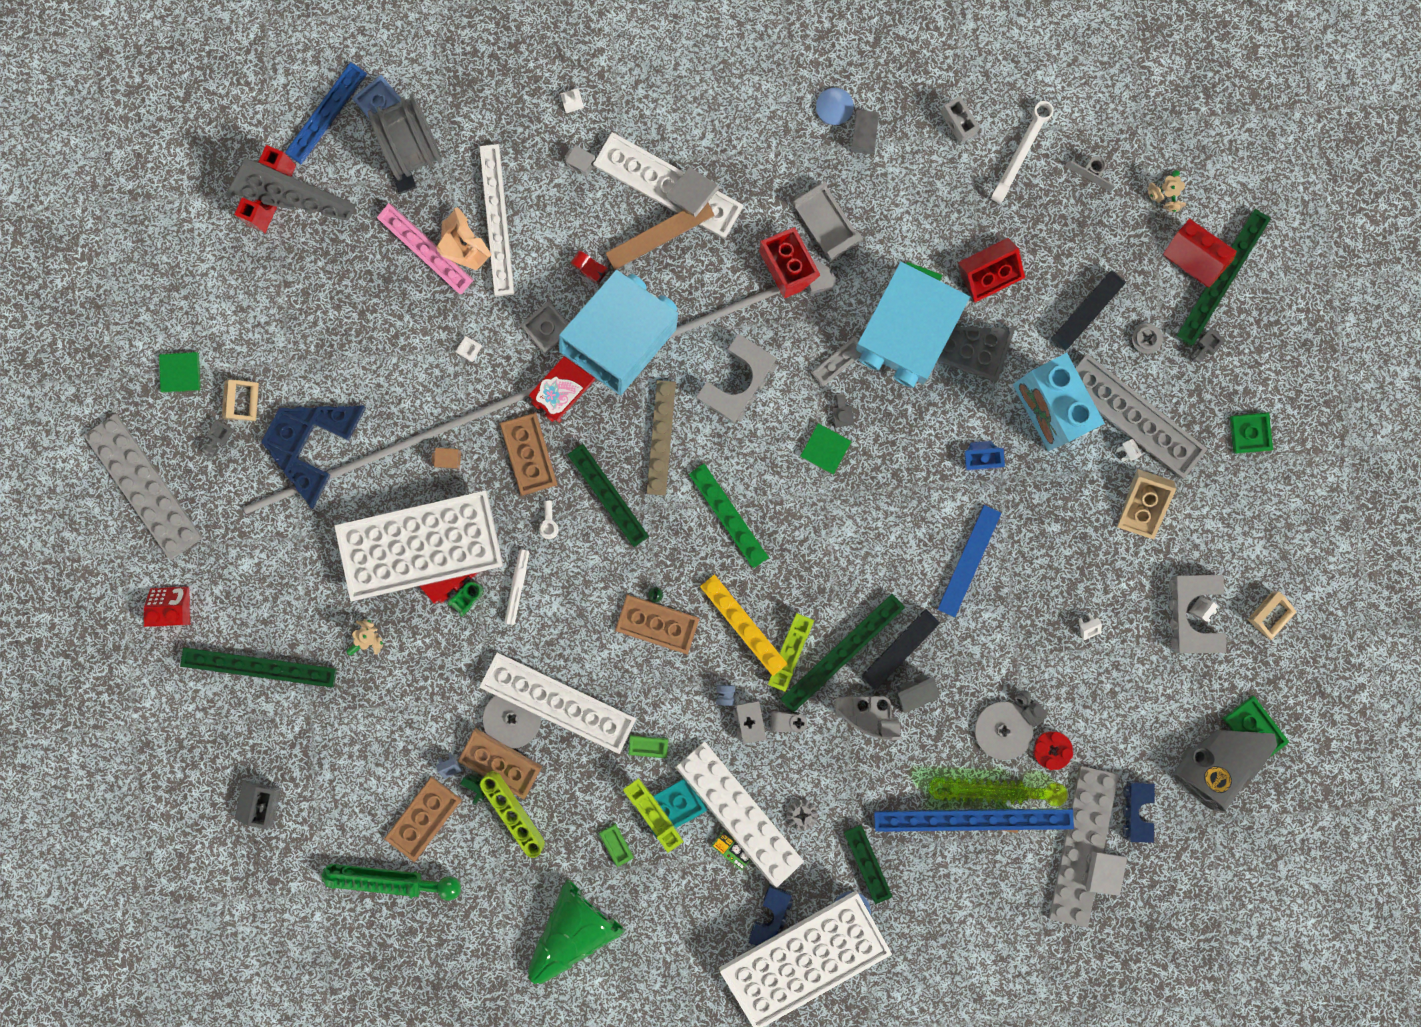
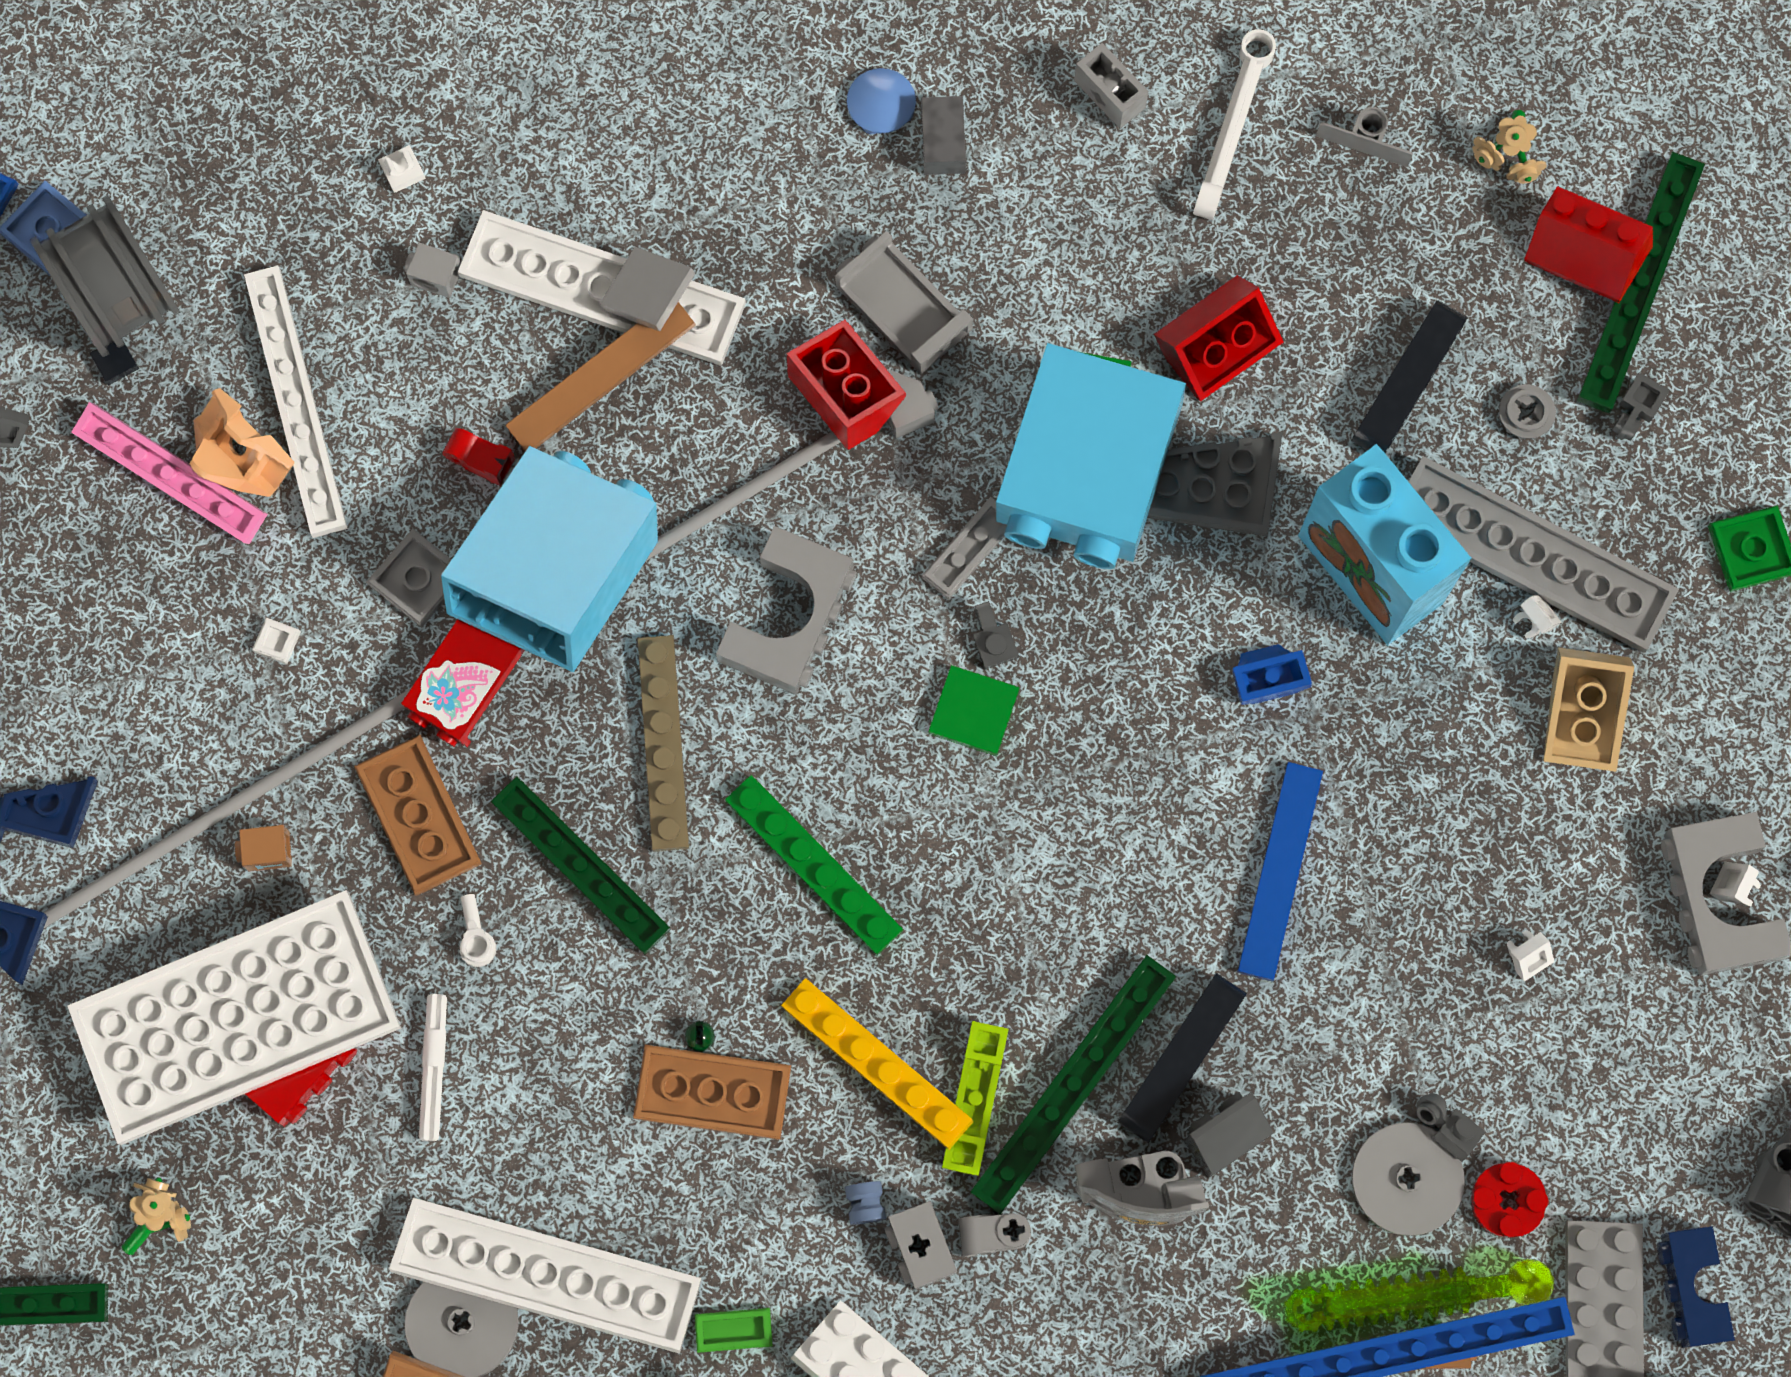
camera: 10 degrees left, 10 degrees down
(463, 600) = (337, 1106): green piece -> none

